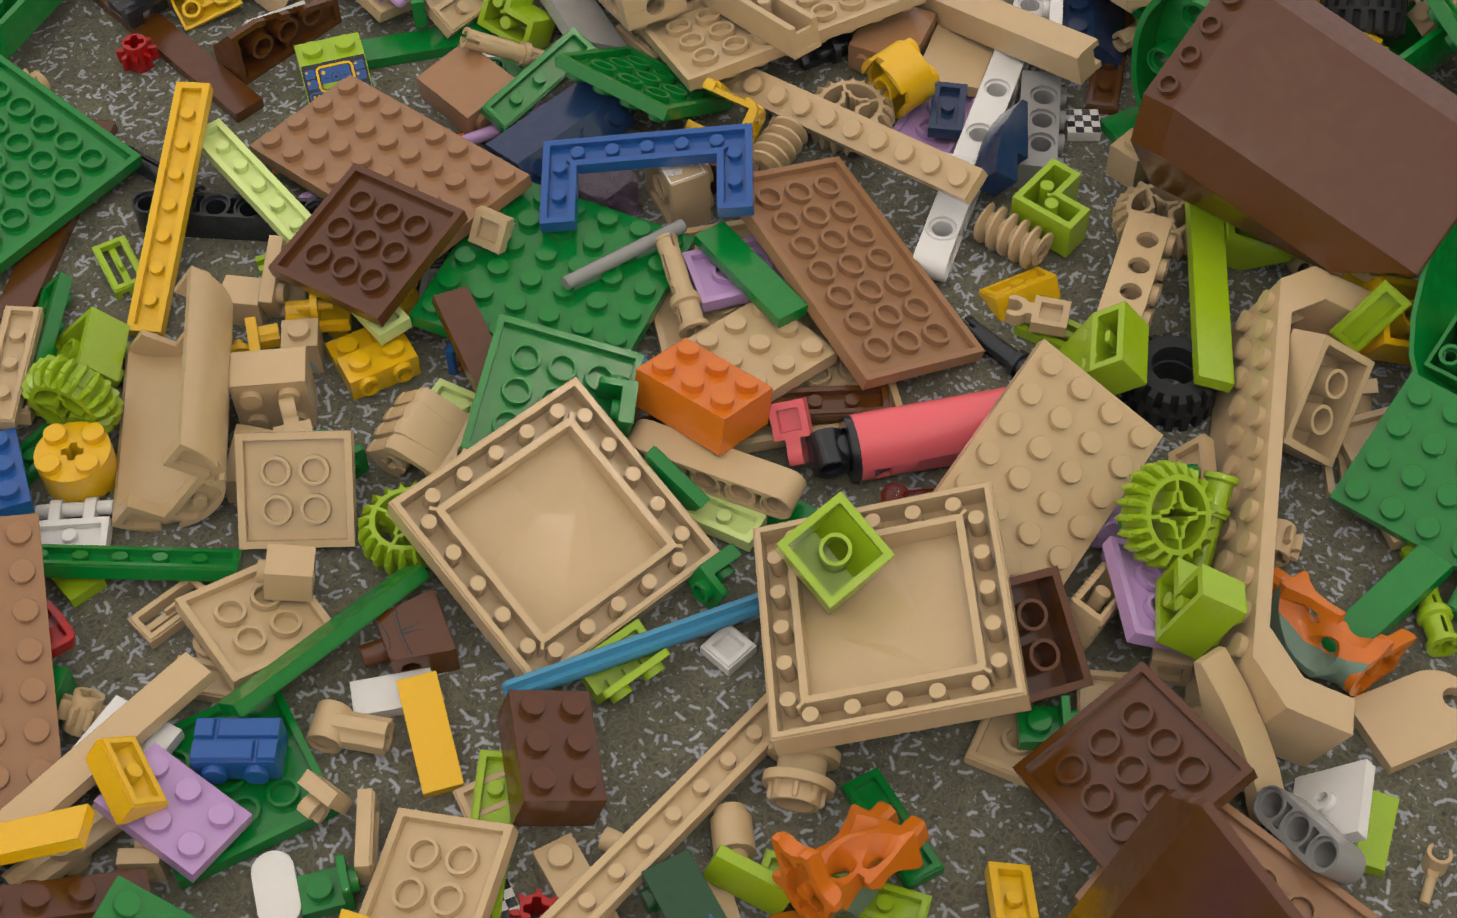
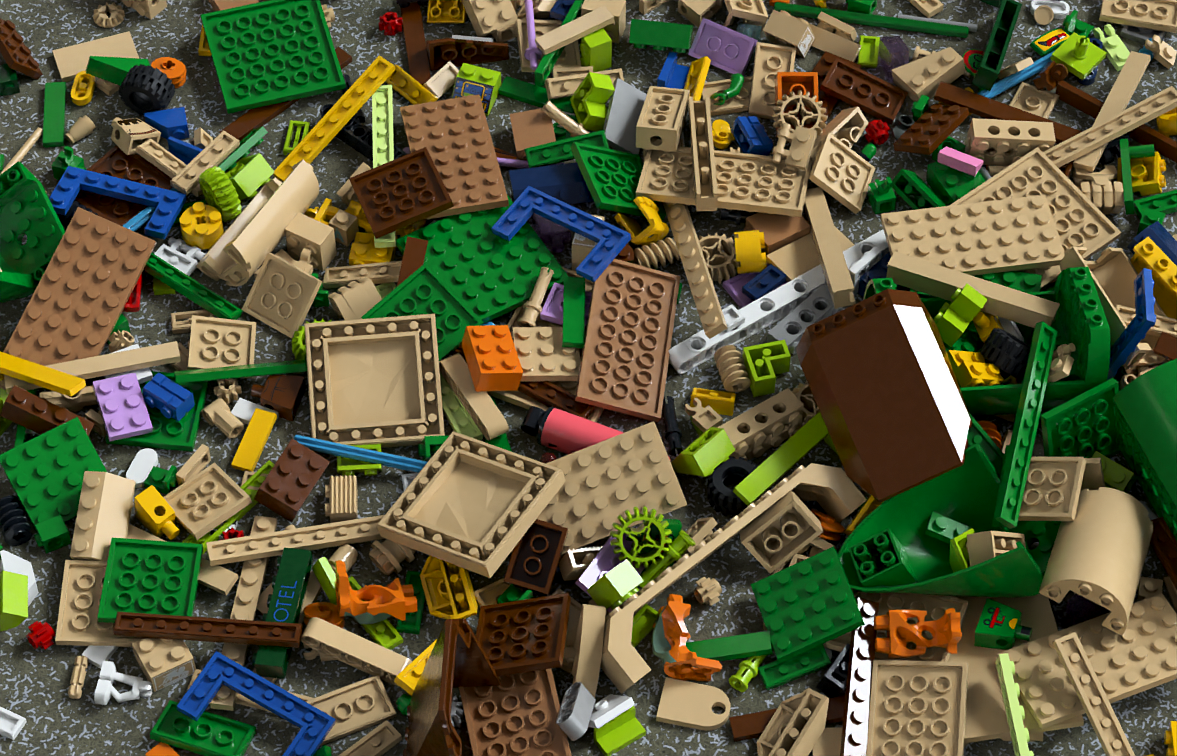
camera: 35 degrees right, 0 degrees up
(125, 779) = (110, 379): yellow slope -> none
(244, 295) = (331, 185): tan brick -> none
(247, 119) = (409, 87): none -> yellow tile
(276, 88) = (442, 80): none -> tan tile
(288, 572) = (248, 332): tan brick -> none
(321, 797) = (185, 437): tan tile -> none
(322, 681) = (228, 390): none -> tan gear
(368, 407) = (378, 272): none -> tan tile
(491, 229) = (465, 218): tan tile -> none
(620, 256) = (525, 267): light grey bar -> none
(623, 399) = (449, 342): green bracket -> none
(649, 739) = (342, 498): none -> tan brick
(685, 491) = (447, 389): green tile -> none
(792, 422) = (526, 396): coral plate -> none
(834, 552) = (463, 460): lime slope -> none
(942, 776) = (448, 590): none -> yellow wedge
(1004, 149) = (762, 321): dark blue slope -> none
(1370, 317) = (847, 510): lime tile -> none

